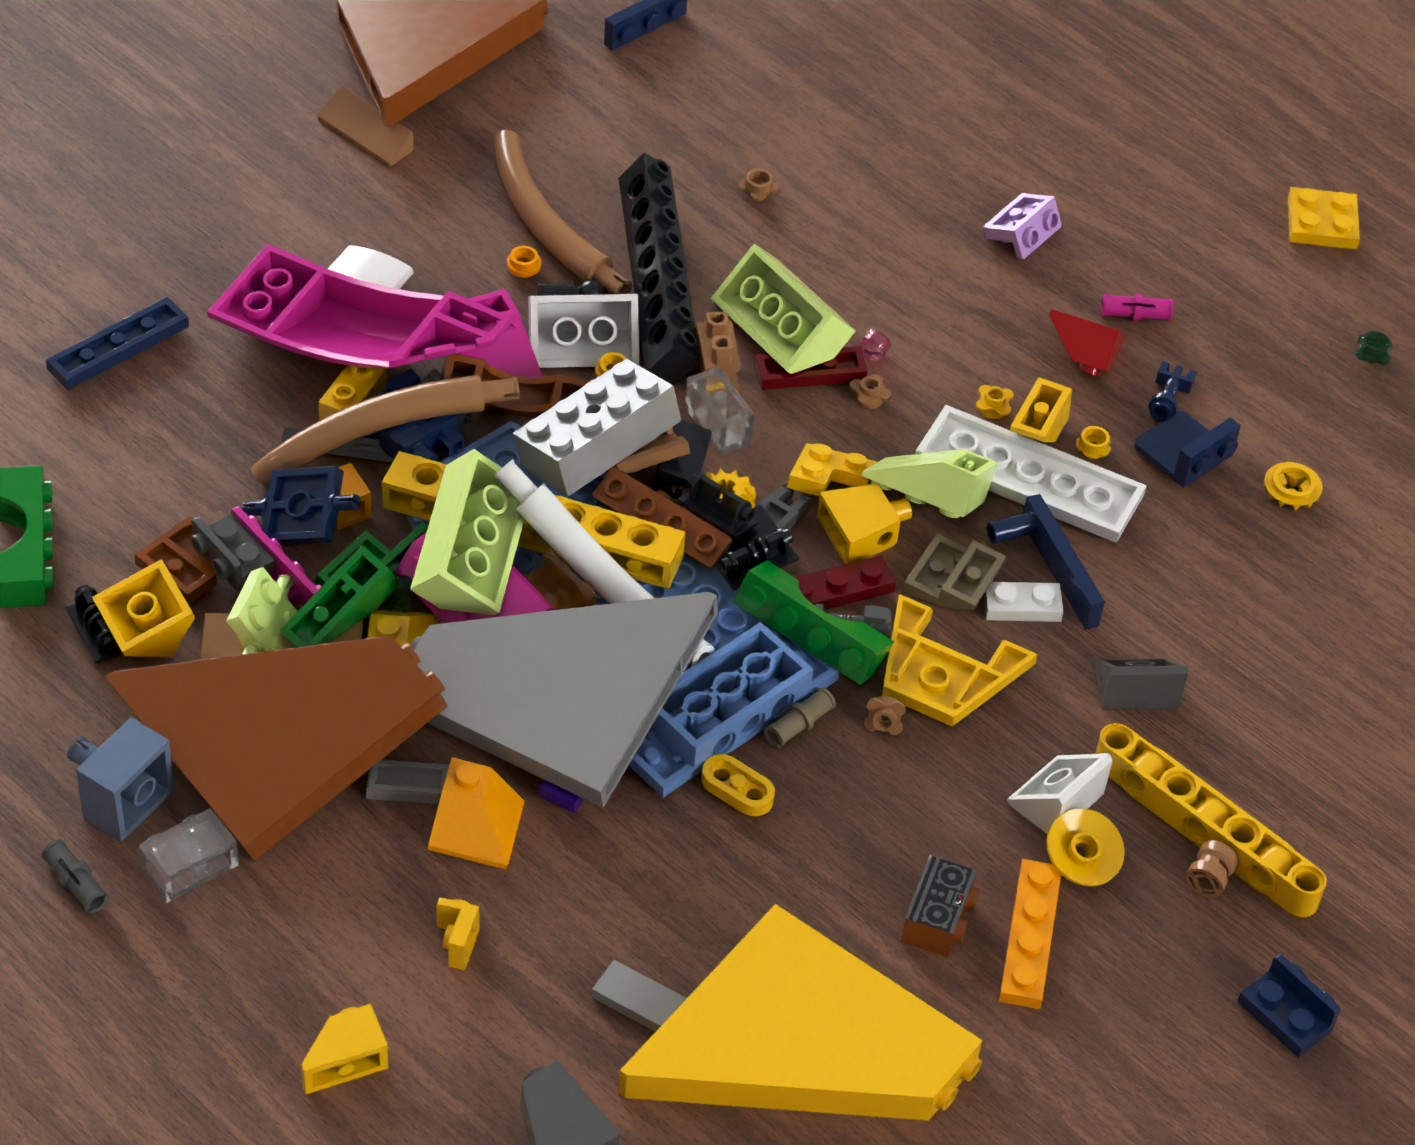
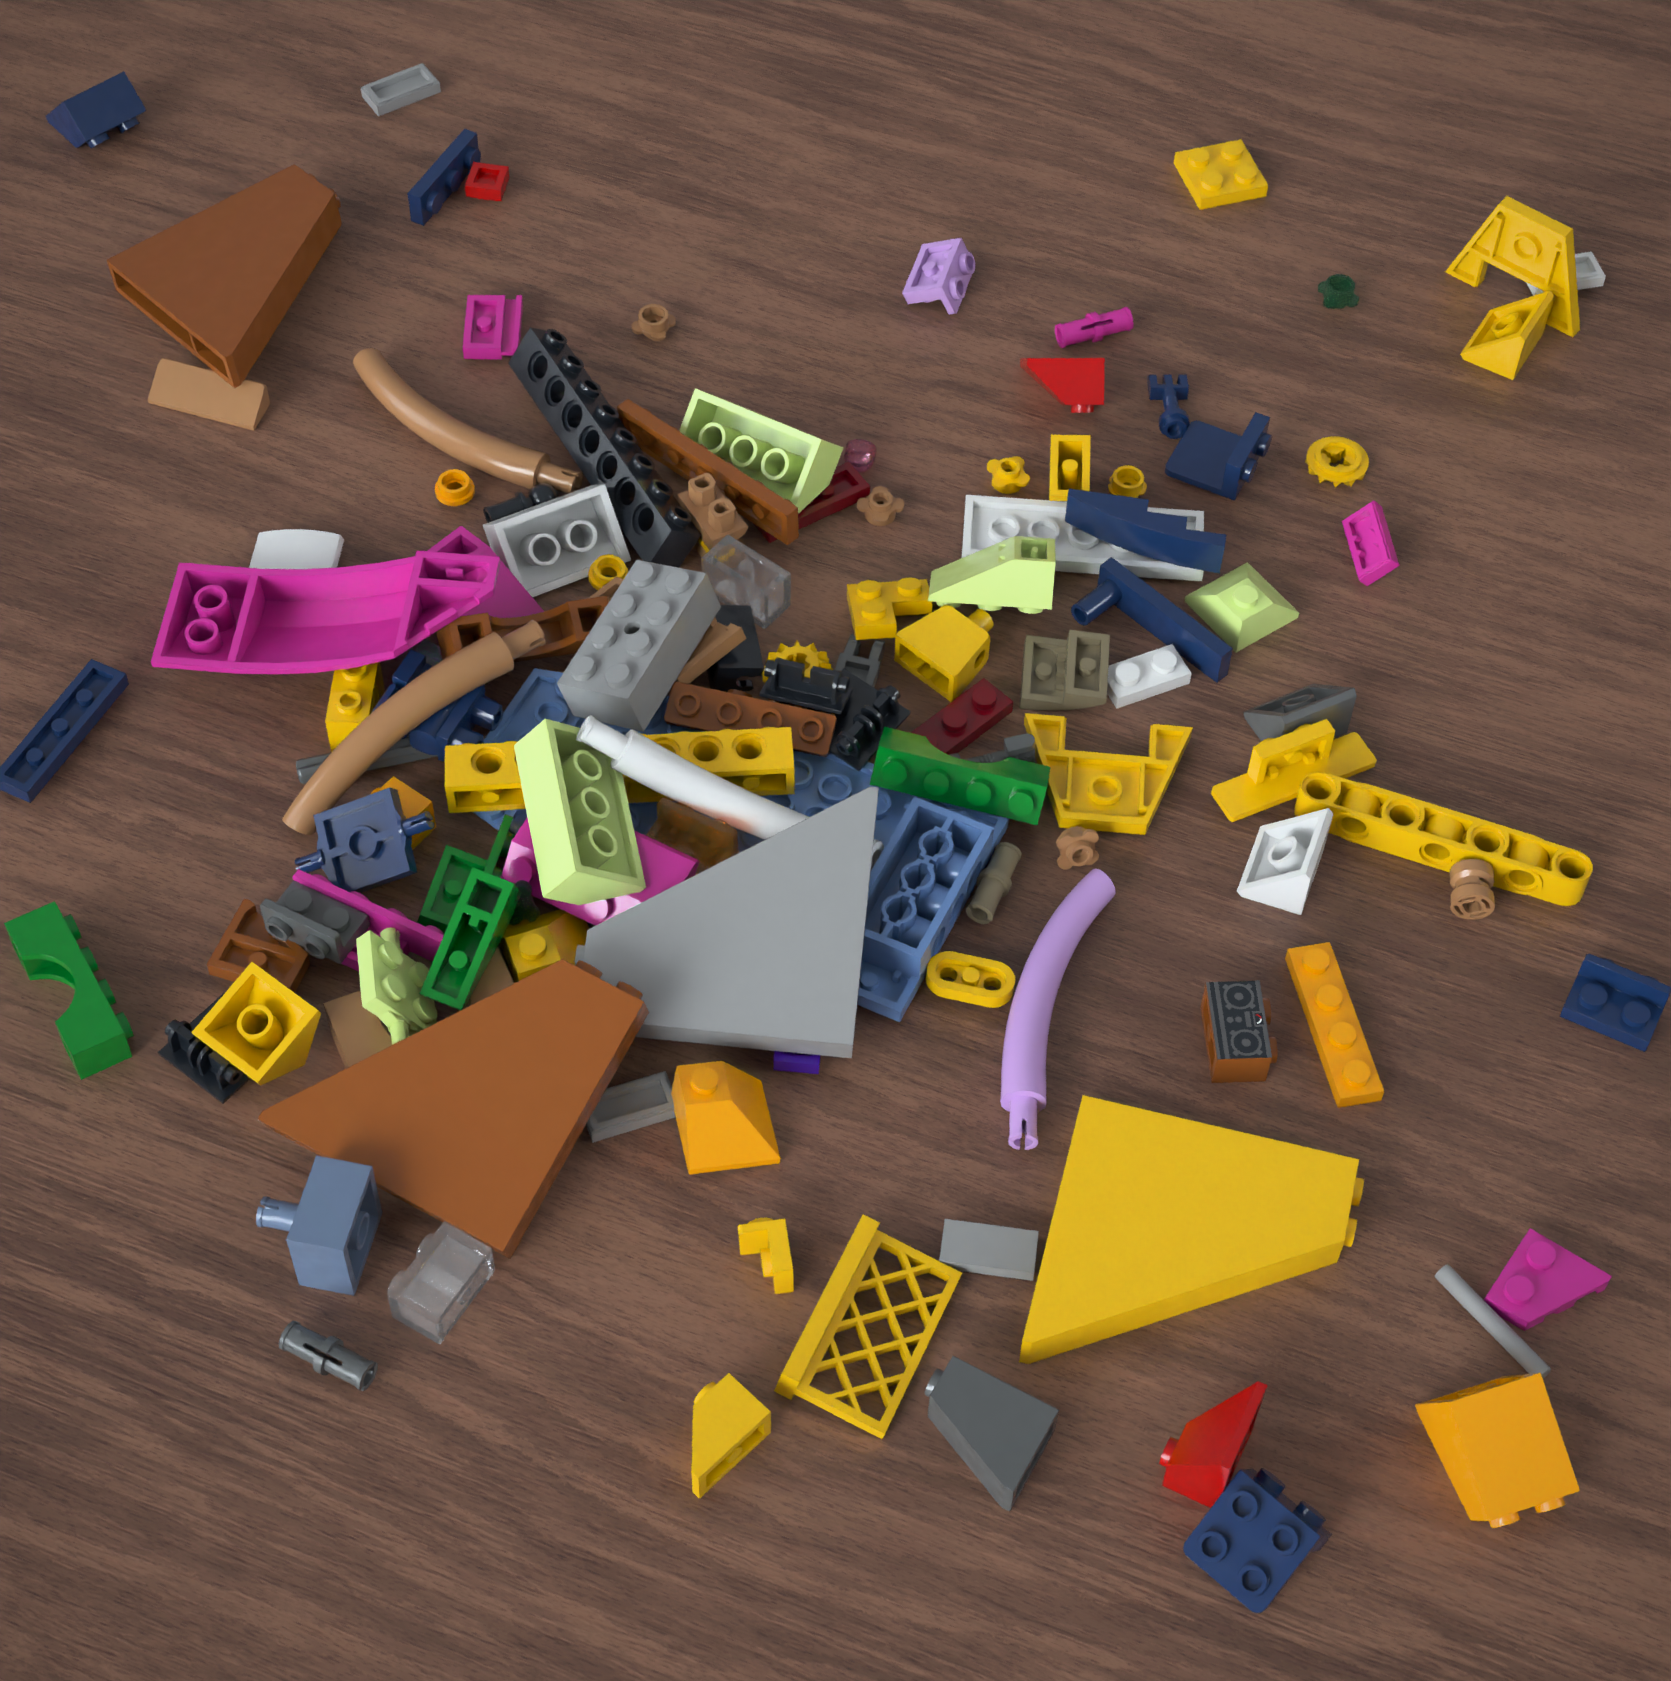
camera: 20 degrees left, 5 degrees up
(478, 994) = (828, 1318): none -> yellow fence
(621, 144) = (492, 326): none -> dark pink plate
(680, 30) = (487, 181): none -> red plate
(721, 297) = (690, 459): none -> dark orange plate
(778, 823) = (1033, 1002): none -> lavender animal
(1086, 488) = (1150, 534): none -> dark blue slope
(1098, 840) = (1355, 906): yellow dish -> none
(1100, 704) = (1282, 763): none -> yellow bracket
(1141, 576) = (1241, 607): none -> yellowish green slope
(1282, 561) = (1370, 543): none -> dark pink plate

